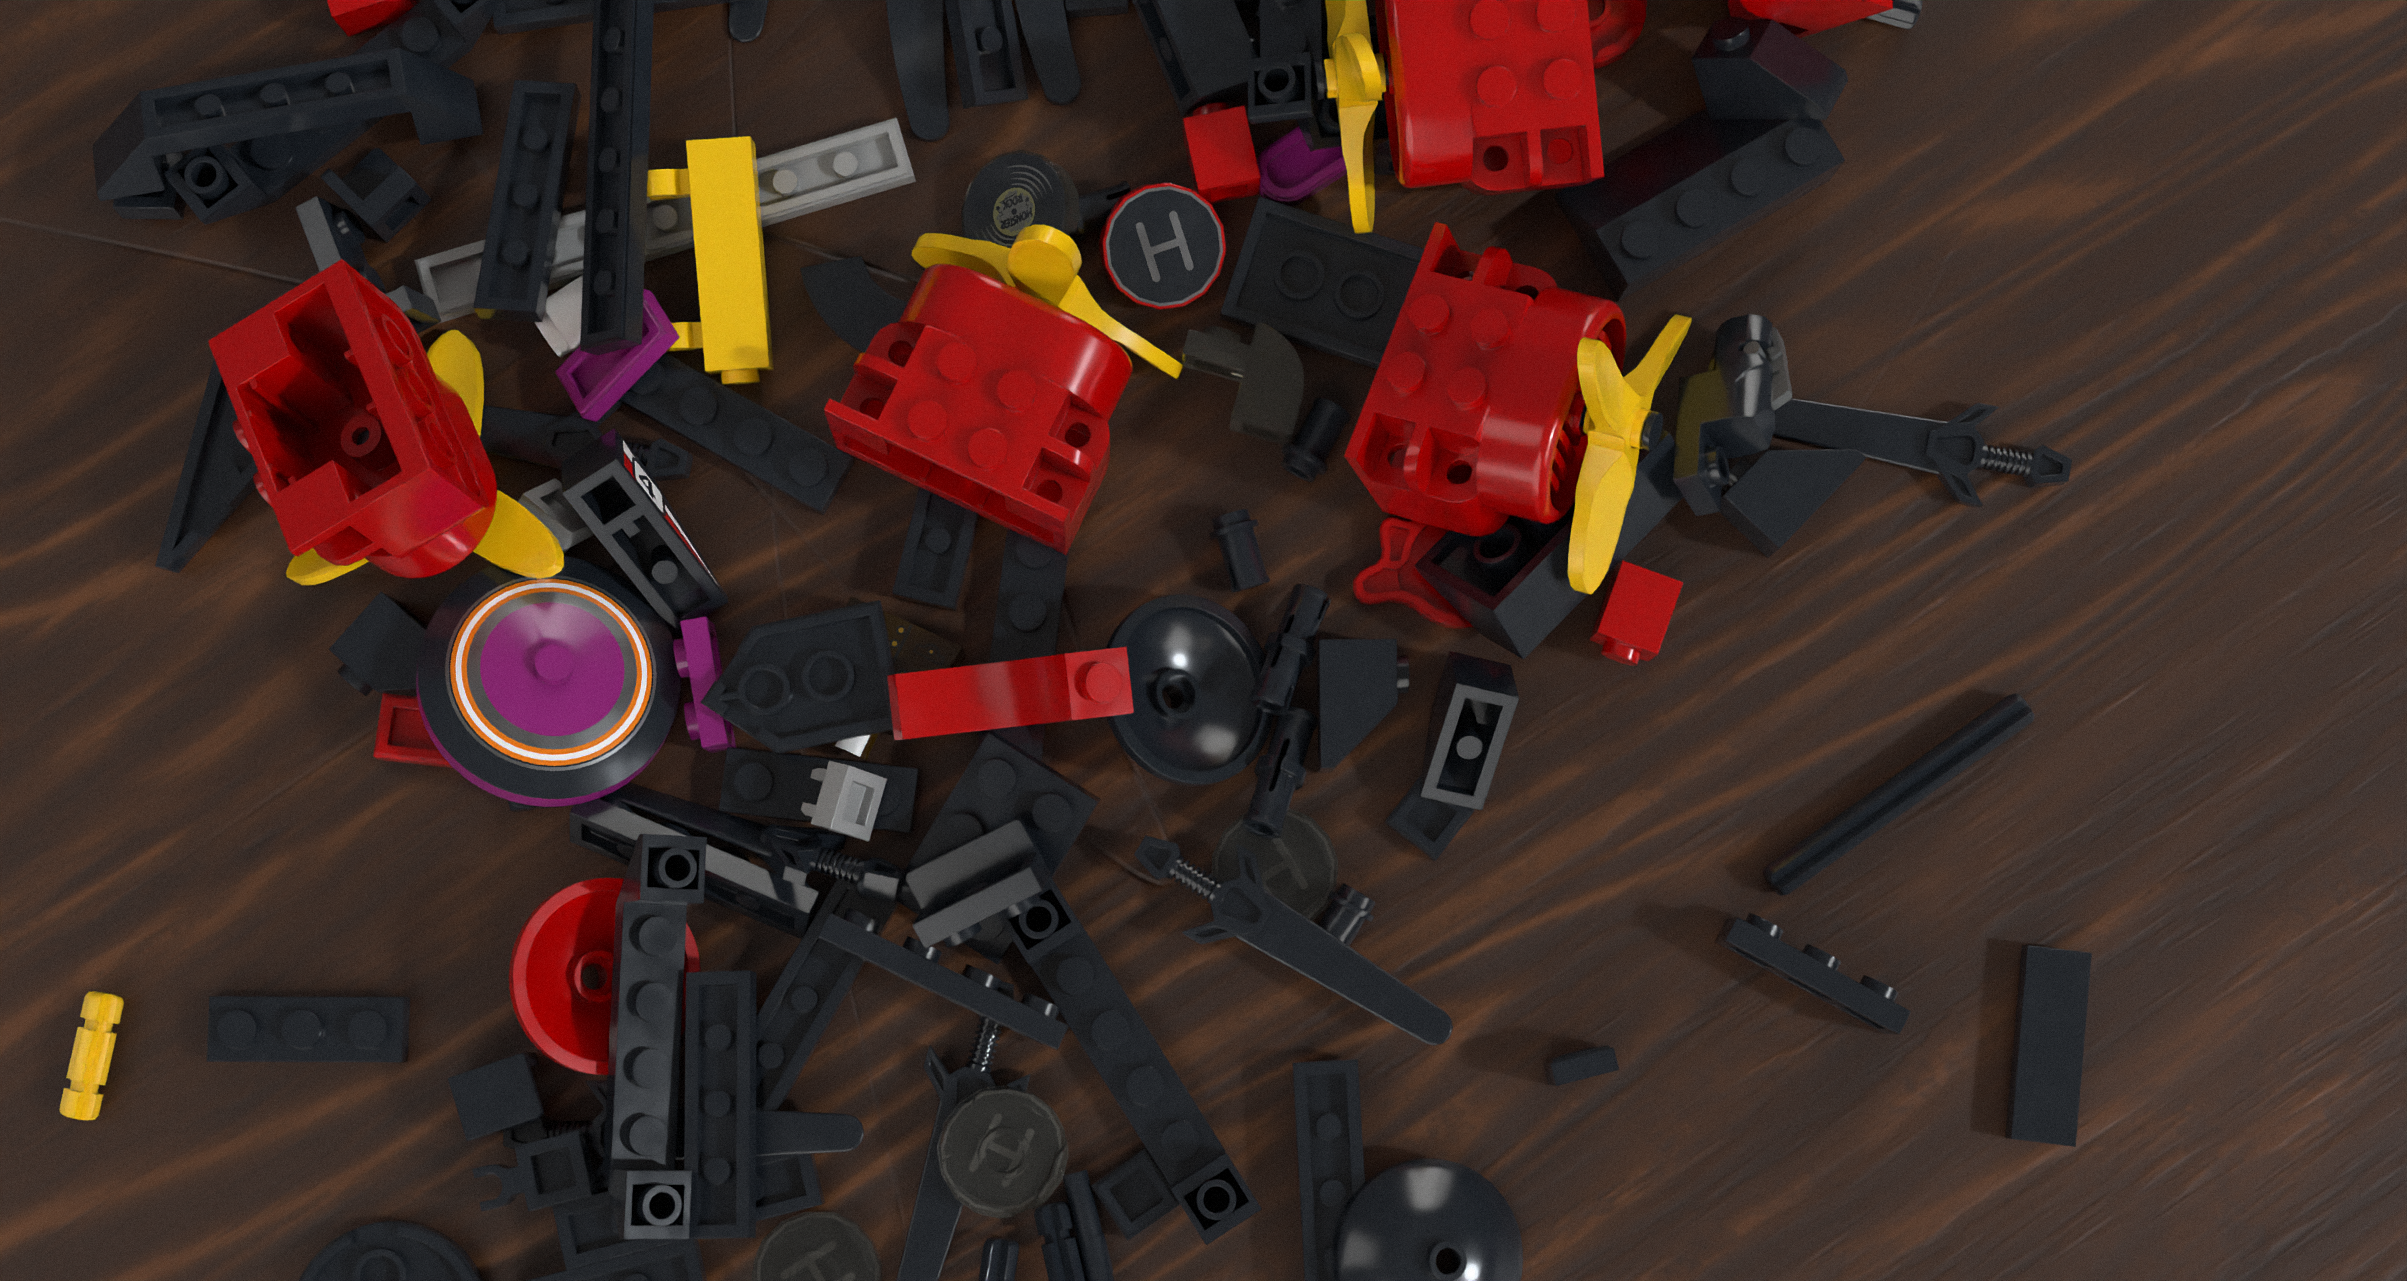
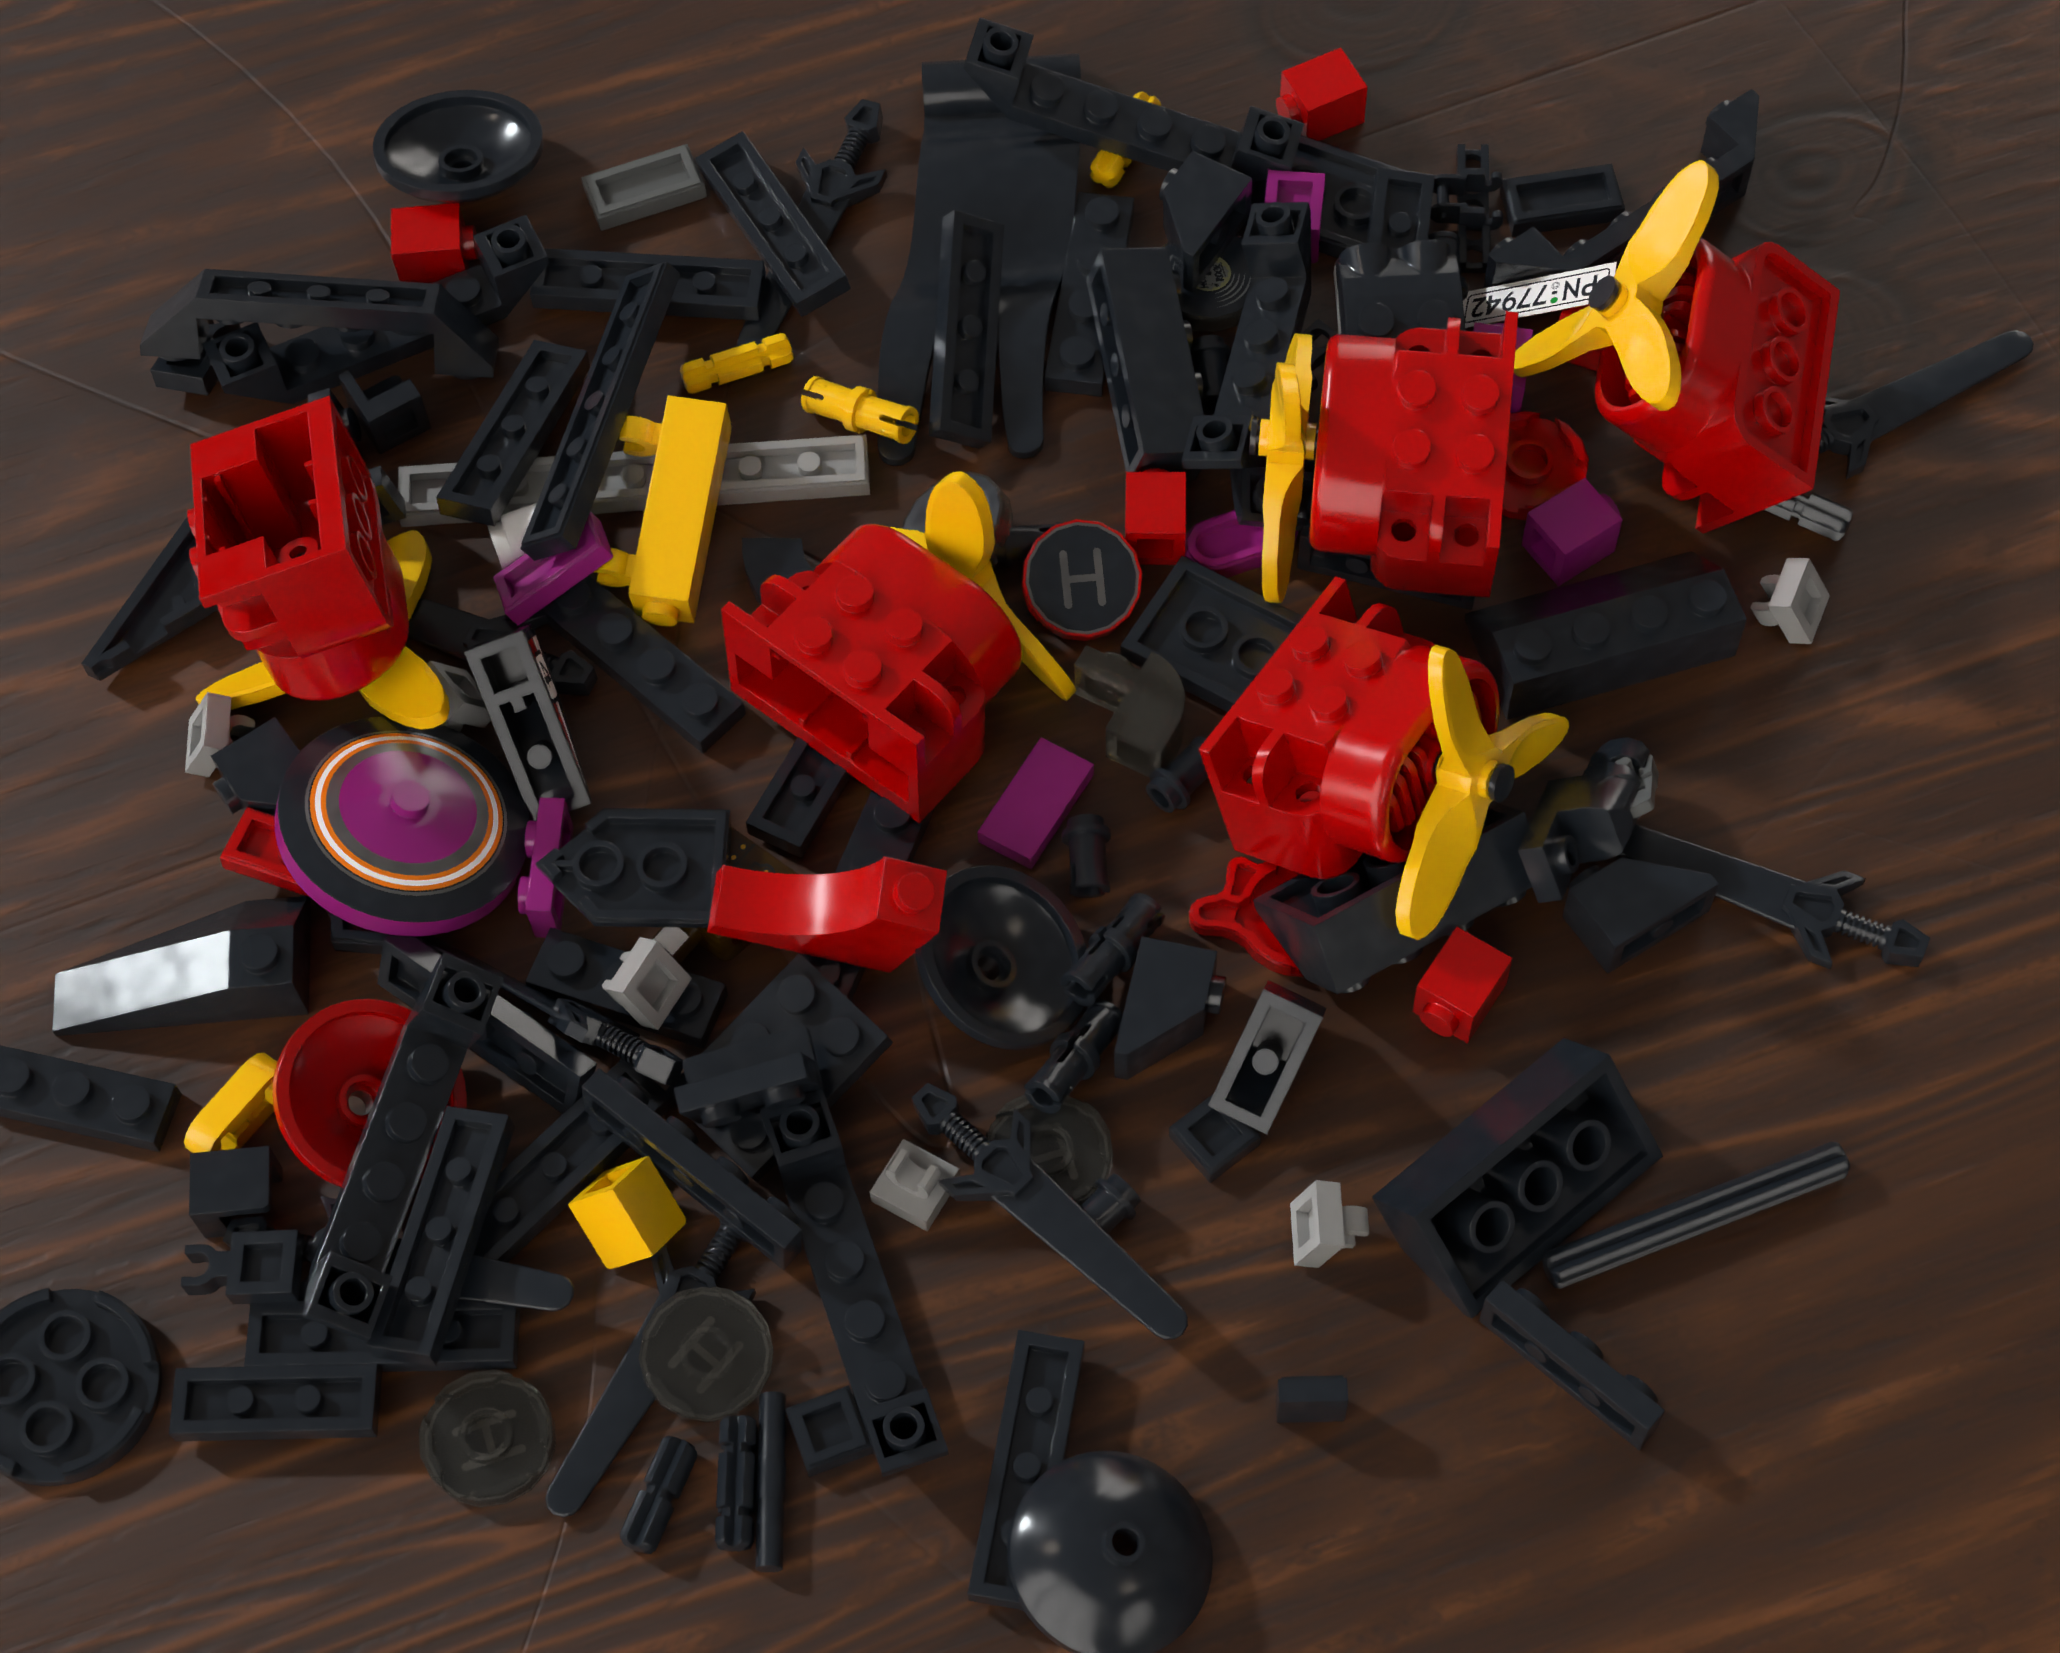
camera: 20 degrees right, 20 degrees down
(315, 614) = (211, 731): none -> light grey tile
(393, 864) = (211, 970): none -> black wedge
(474, 1011) = (236, 1108): none -> yellow beam
(736, 59) = (736, 363): none -> yellow axle
(883, 92) = (860, 409): none -> yellow pin
(889, 1029) = (628, 1213): none -> yellow panel
(1154, 931) = (911, 1185): none -> light grey tile
(1174, 501) = (1035, 803): none -> magenta tile
(1553, 890) = (1323, 1224): none -> light grey tile
(1647, 81) = (1572, 531): none -> magenta brick
(1727, 795) = (1519, 1174): none -> black slope
(1764, 73) = (1681, 533): black slope -> none
(1885, 114) = (1795, 601): none -> light grey tile
(2048, 1045) = (1810, 1496): black tile -> none

